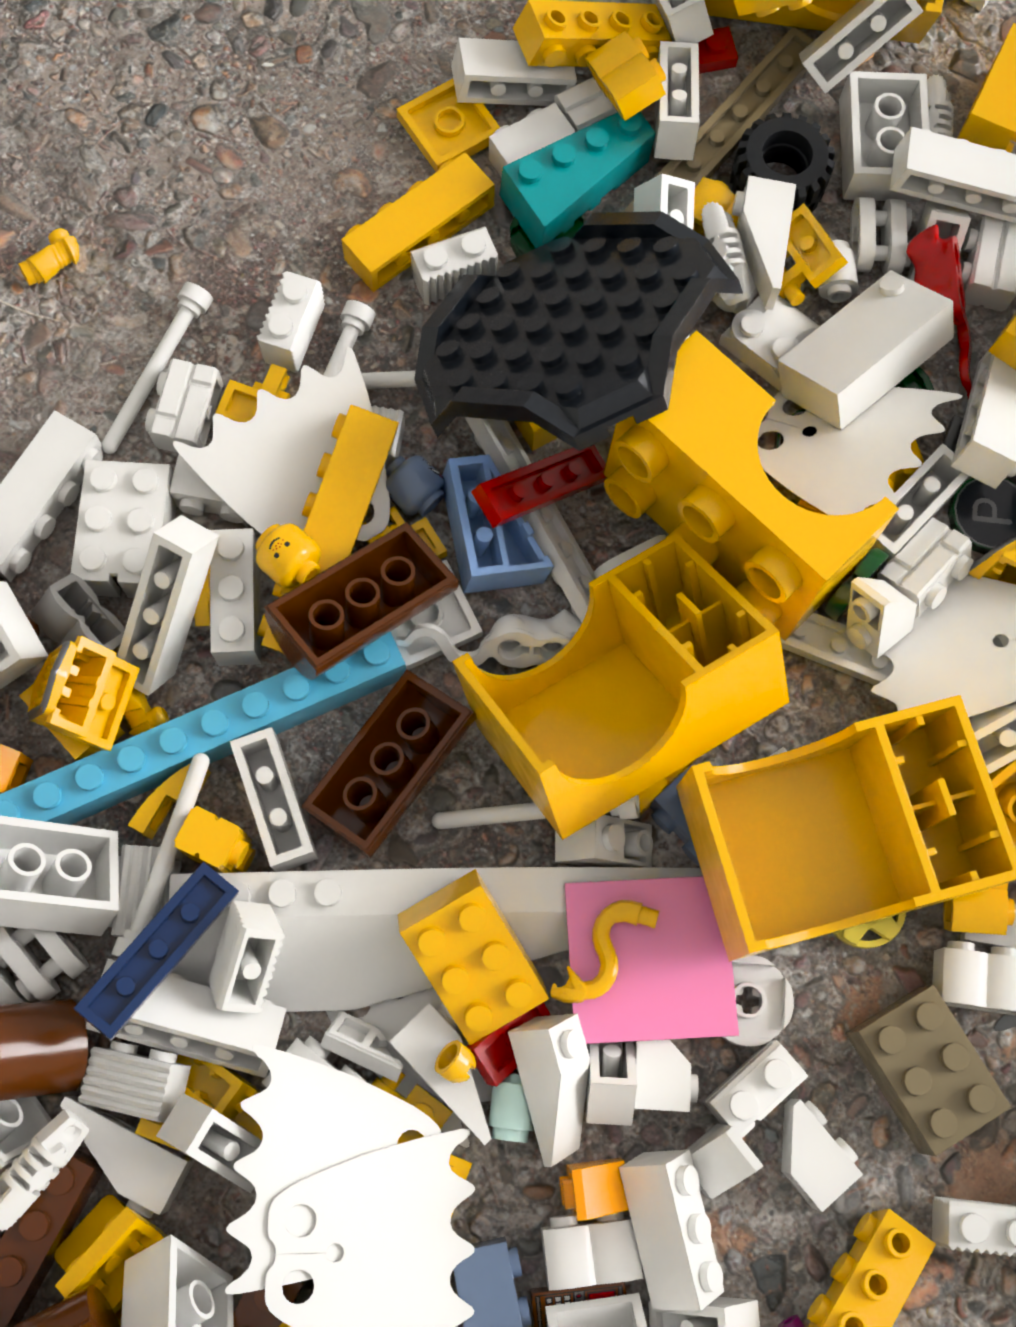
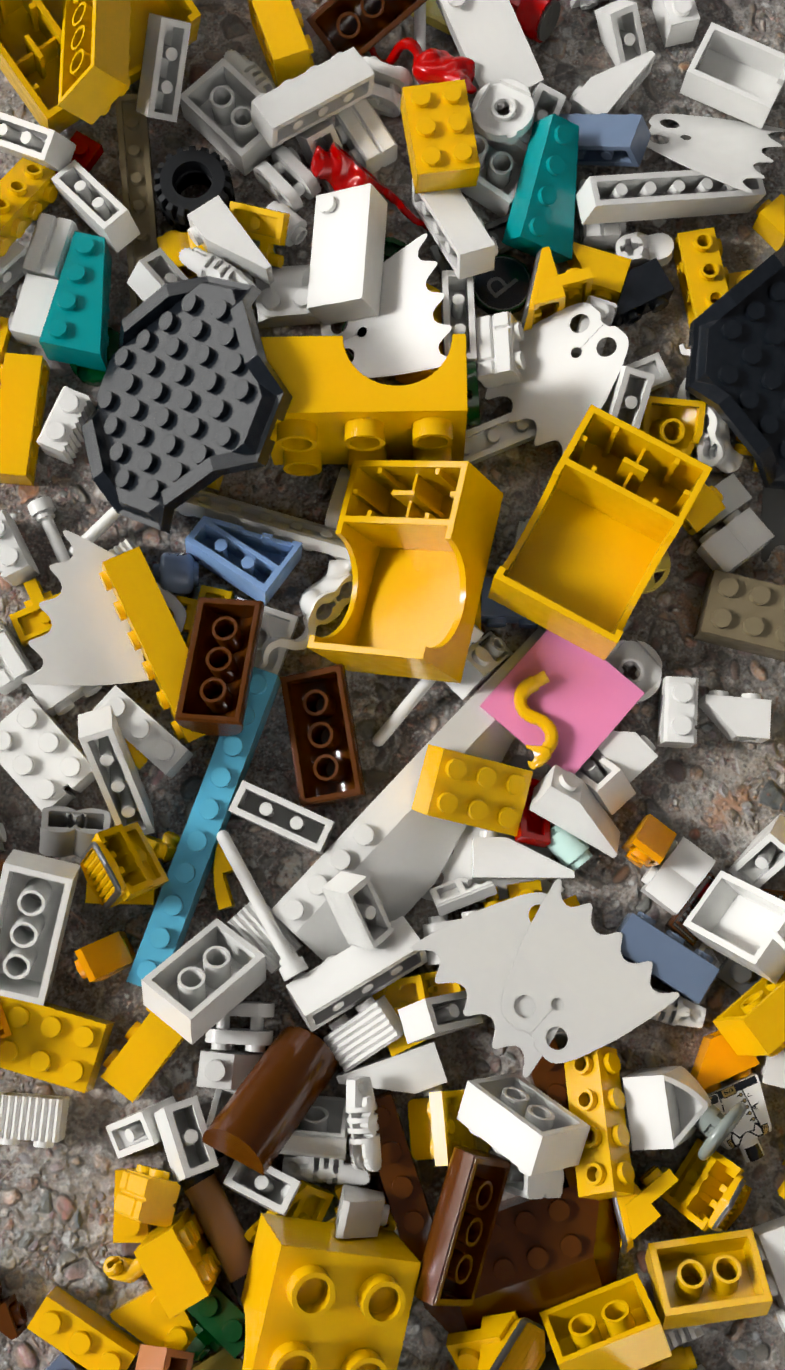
camera: 40 degrees left, 5 degrees up
(156, 951) = (310, 953): dark blue plate -> none
(215, 842) = (277, 870): yellow brick -> none
(287, 555) = (156, 679): yellow head -> none
(455, 1062) = (518, 852): yellow hinge -> none
(539, 484) = (248, 508): red plate -> none
(627, 74) = (55, 218): yellow brick -> none
(672, 1230) = (706, 822): white brick -> none
(722, 1160) = (695, 766): white slope -> none
(877, 615) = (500, 401): white slope -> none

